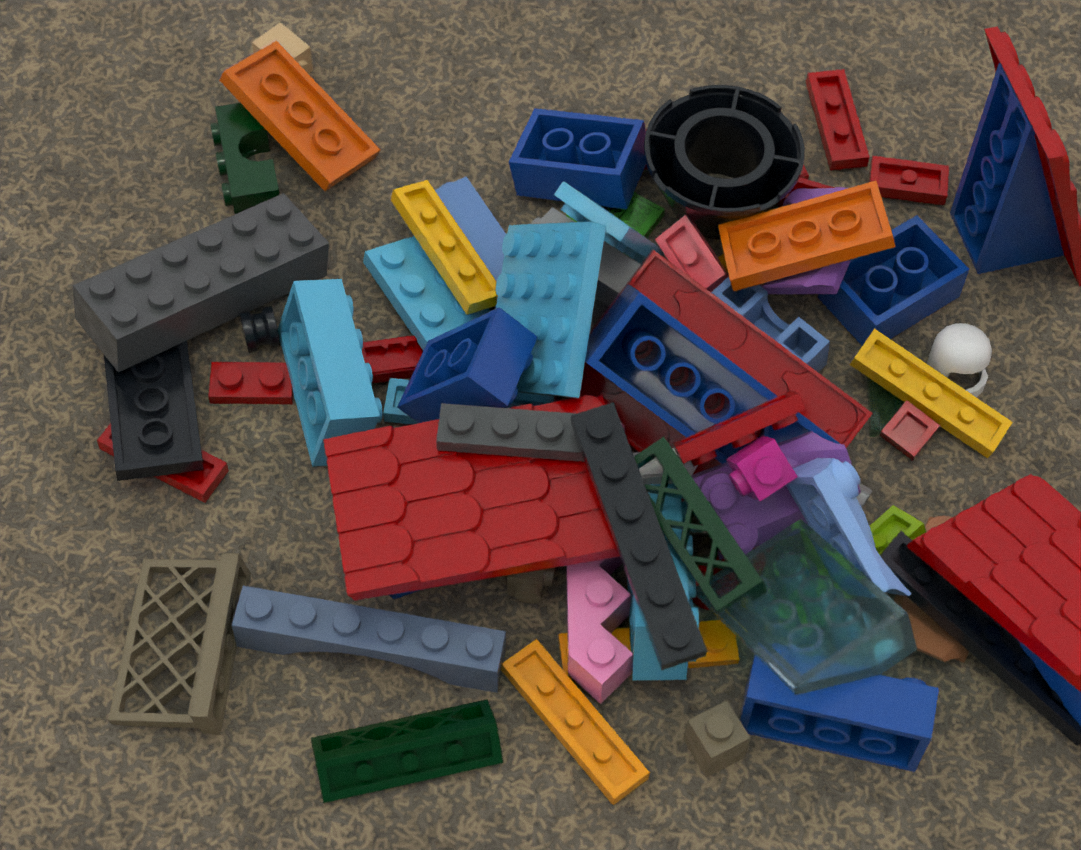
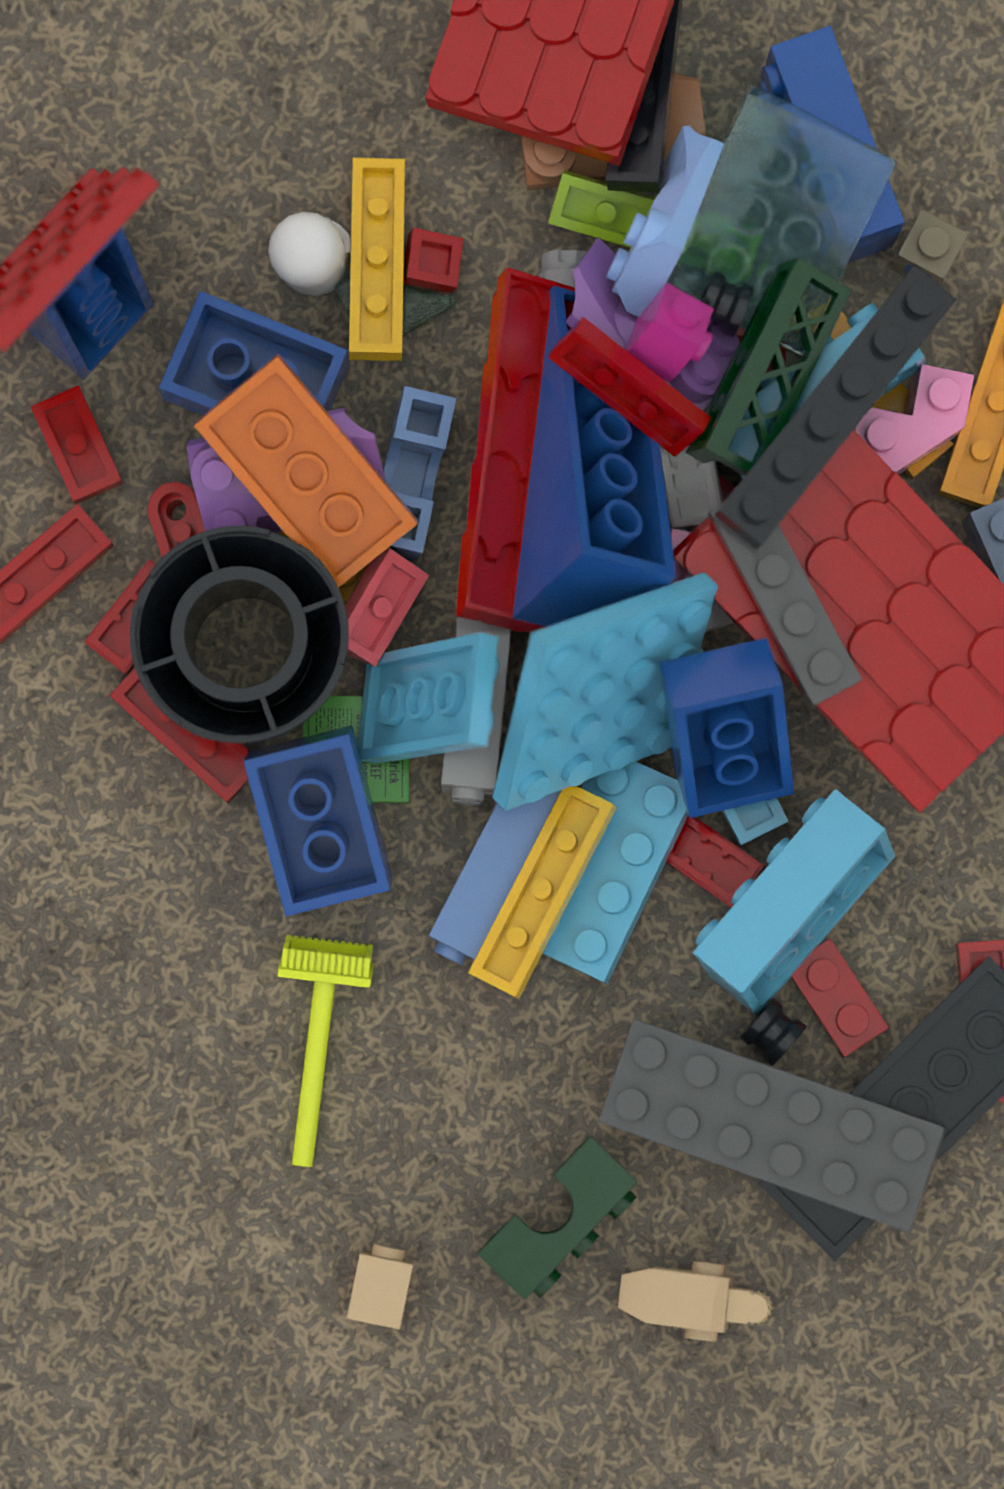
camera: 125 degrees left, 25 degrees up
(140, 195) = (691, 1299): none -> tan hinge
(300, 115) = (471, 1189): orange plate -> none
(485, 135) = (326, 965): none -> neon yellow piece
(762, 539) = (727, 301): none -> black wheel

